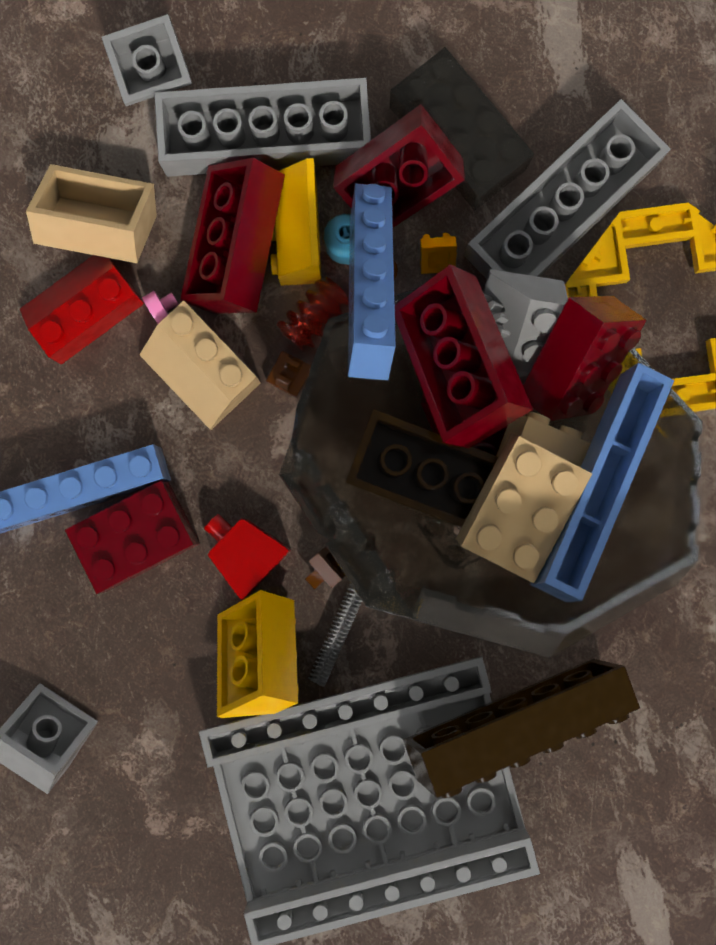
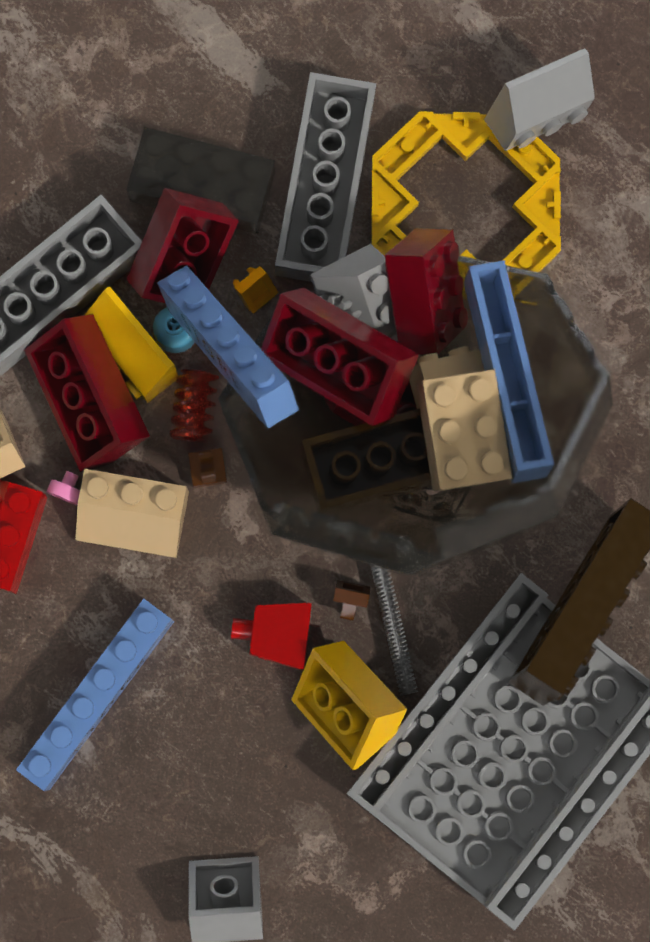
camera: 45 degrees left, 5 degrees down
(132, 536) = (179, 685): dark red brick -> none

